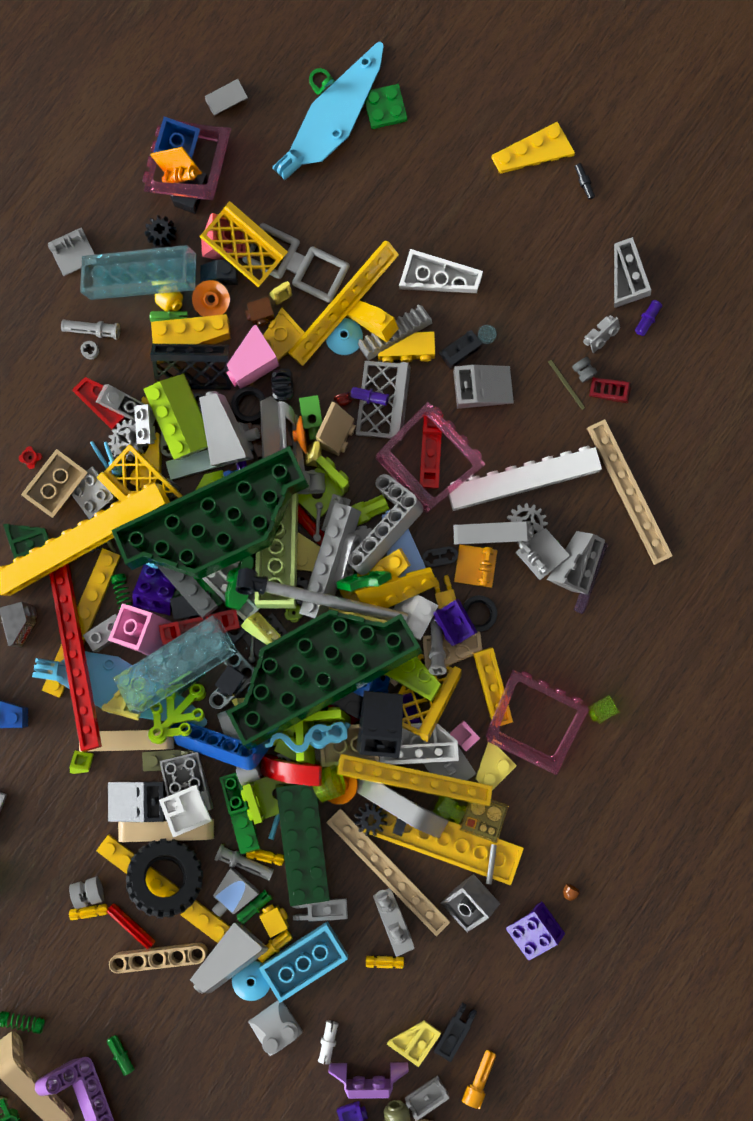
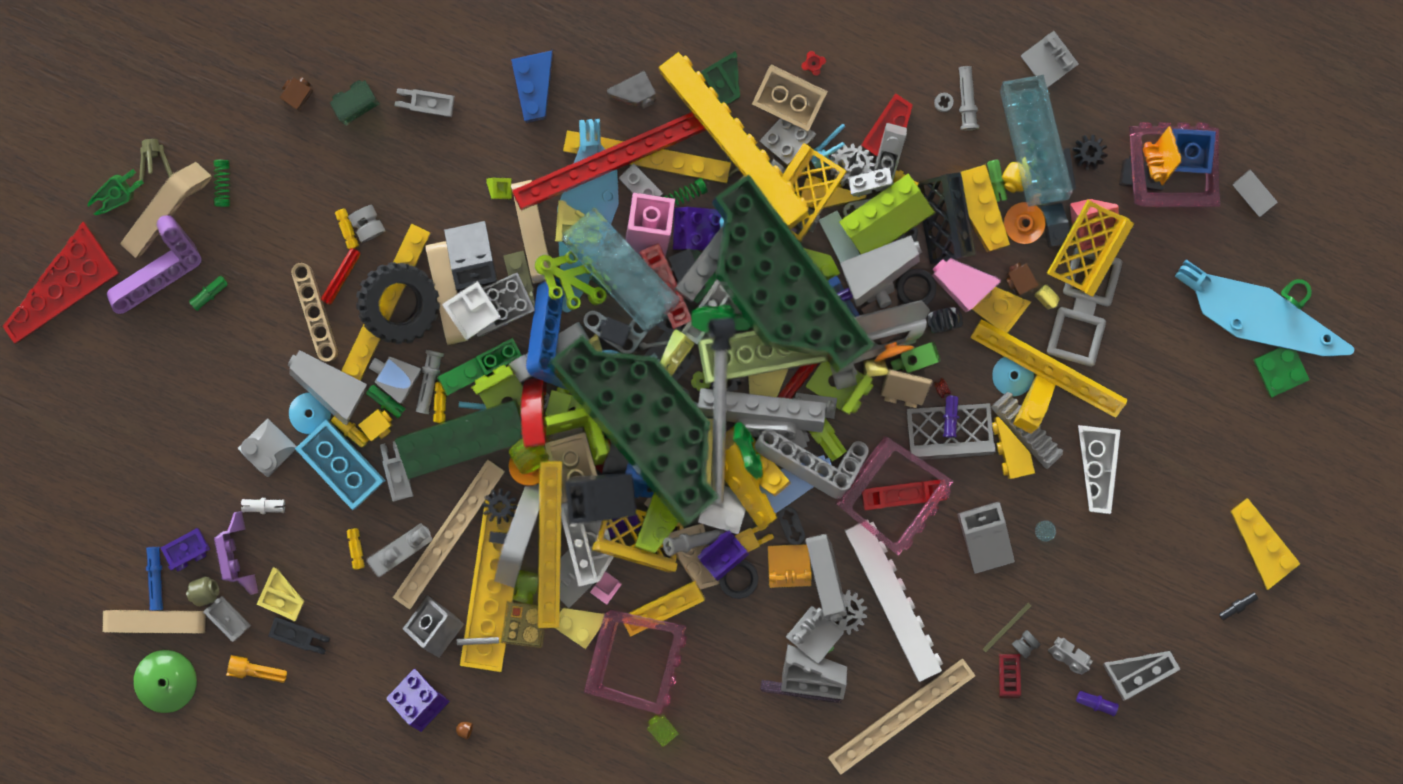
camera: 75 degrees right, 5 degrees up
(317, 537) = (786, 390): light grey hinge -> none
(317, 736) = (574, 434): medium azure animal -> none
(460, 349) = (1022, 505): black hinge -> none

